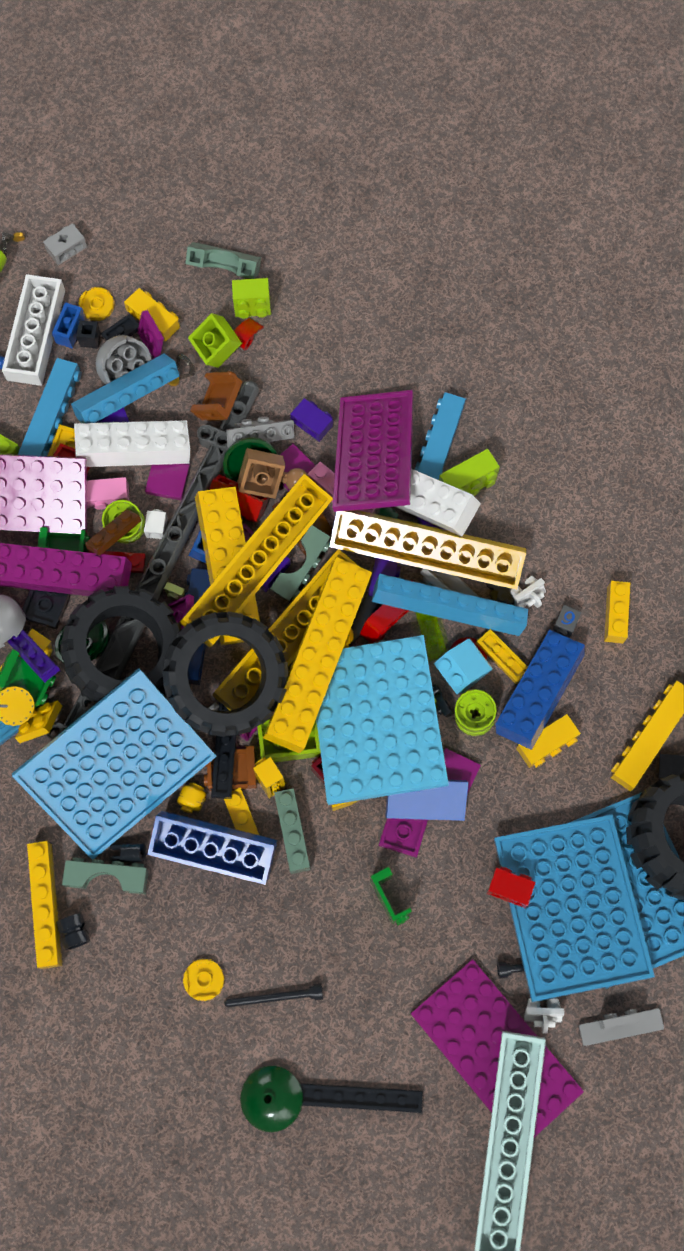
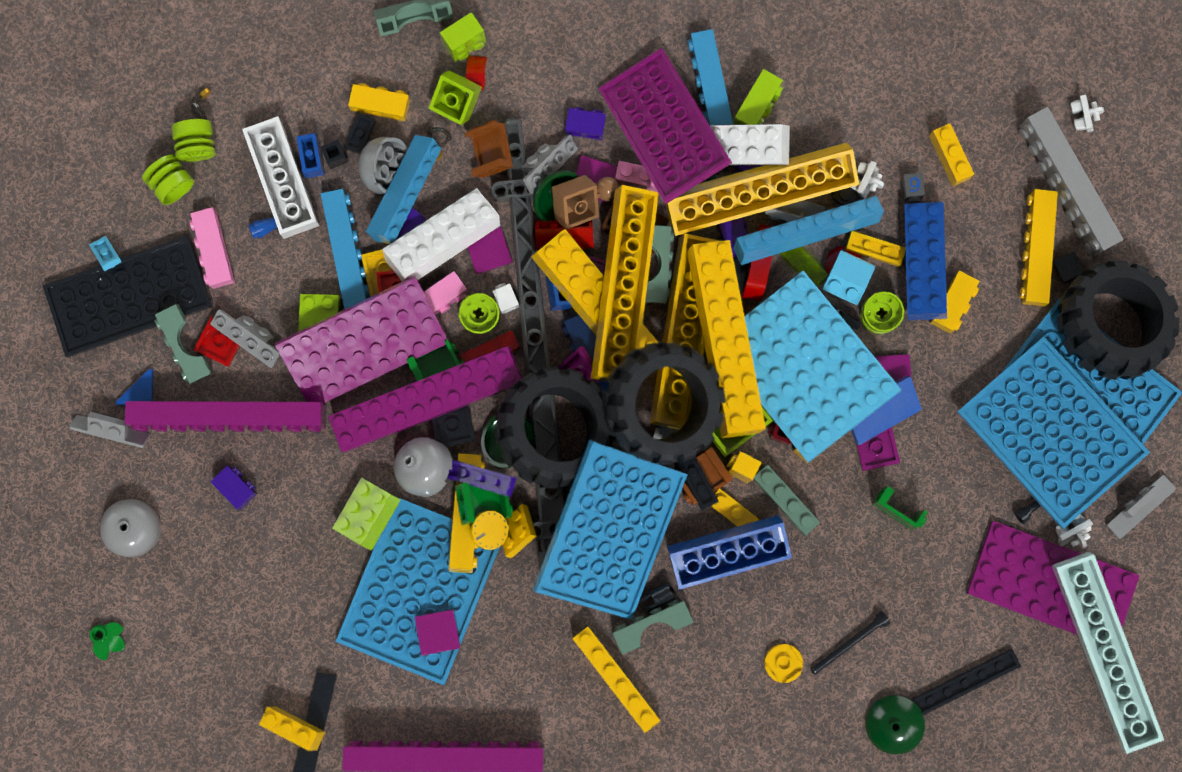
camera: 30 degrees left, 10 degrees up
(65, 244) = (255, 86): light grey brick -> none
(73, 931) = (654, 687): black wheel -> none
(96, 309) = (324, 122): yellow tile -> none
(113, 532) = (480, 329): reddish brown plate -> none
(150, 334) = (392, 124): magenta tile -> none
(174, 592) = (560, 350): yellowish green plate -> none
(191, 798) = (683, 520): yellow head -> none
(511, 887) = (996, 446): red brick -> none

